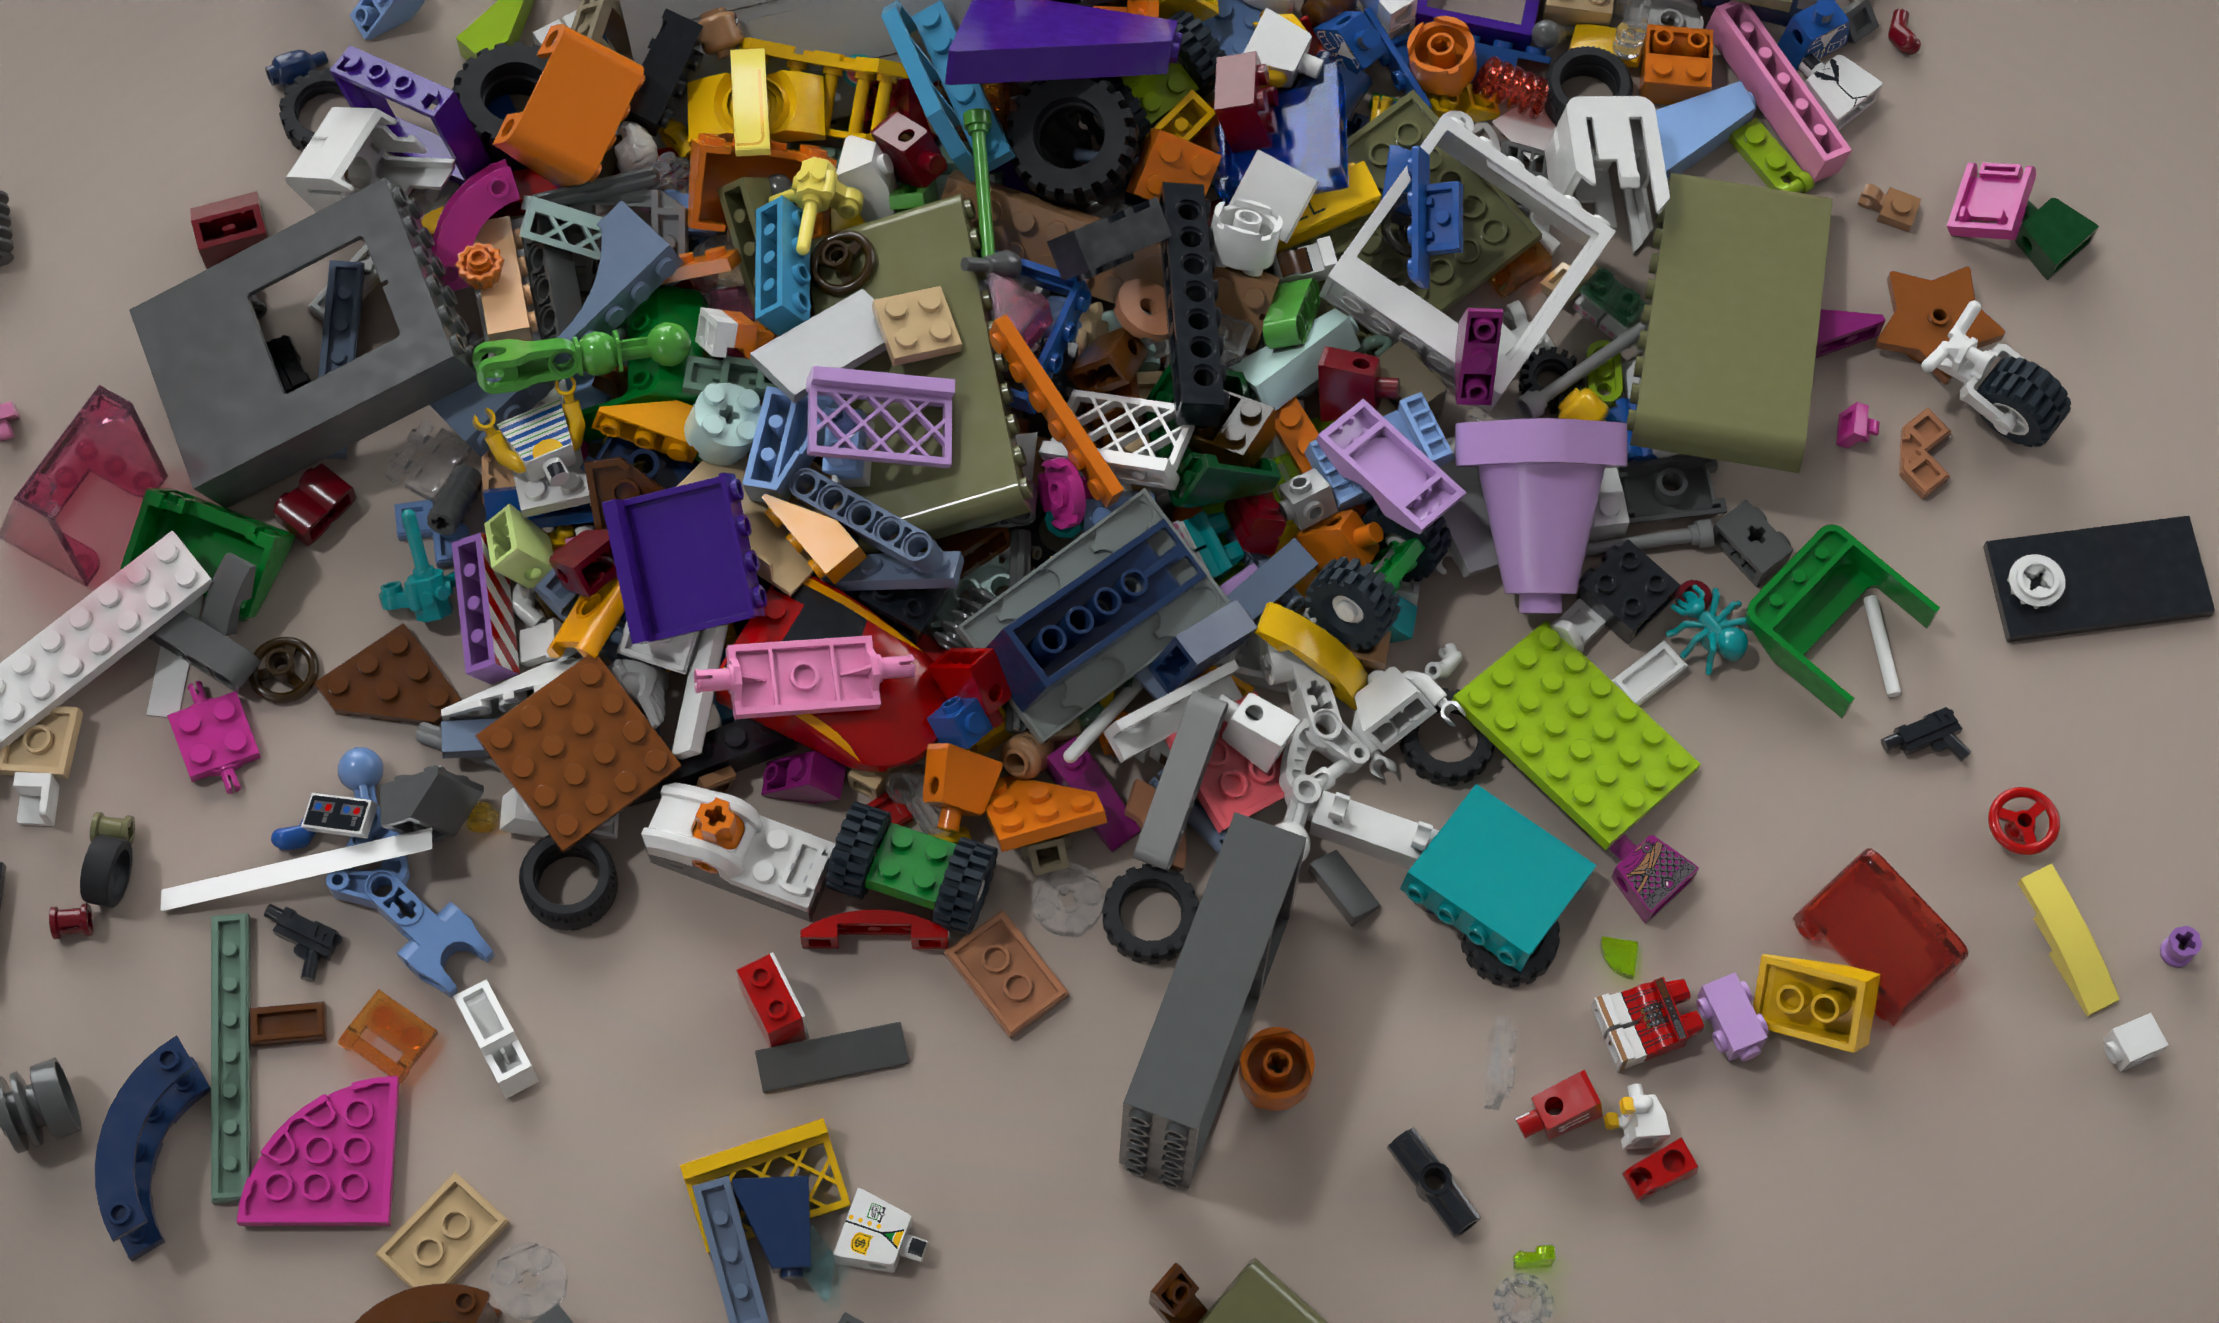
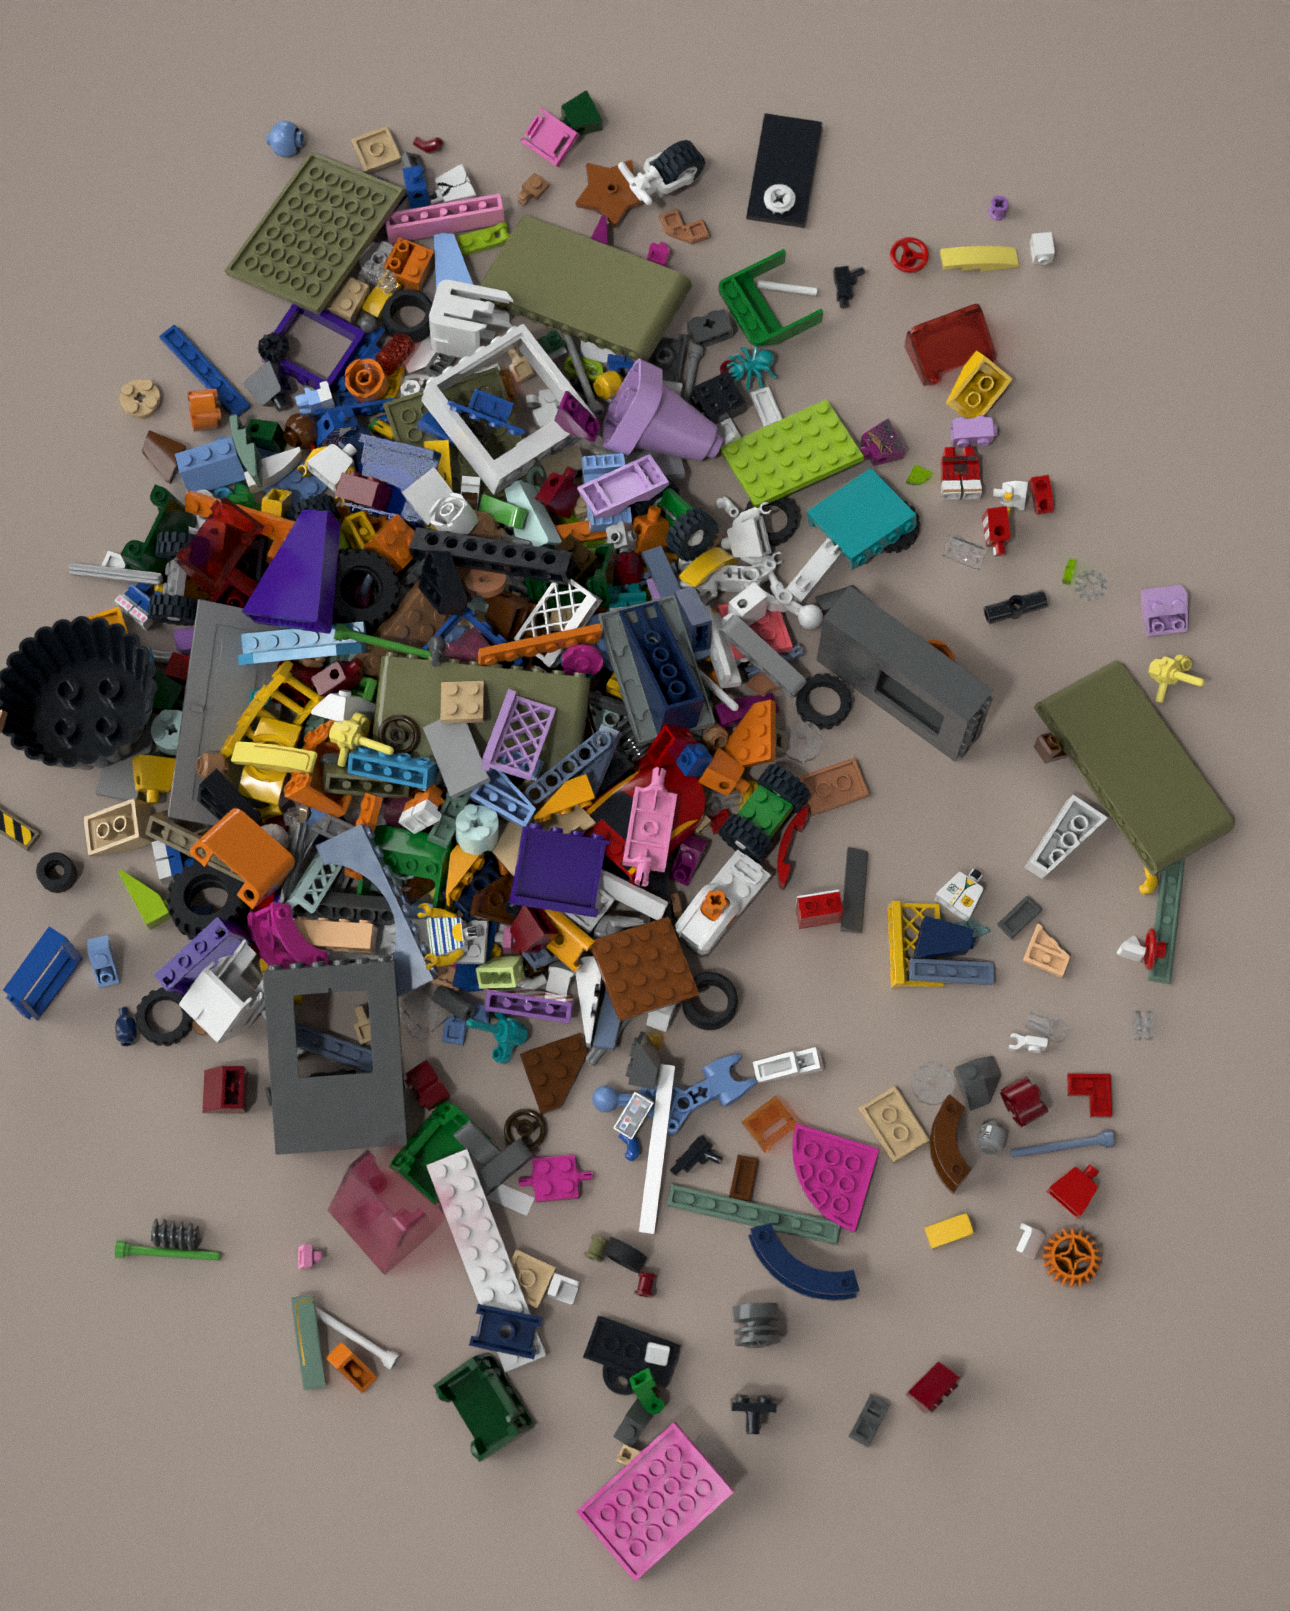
camera: 70 degrees left, 5 degrees up
(480, 265) = (324, 939): orange piece -> none
(596, 353) = (410, 905): bright green piece -> none

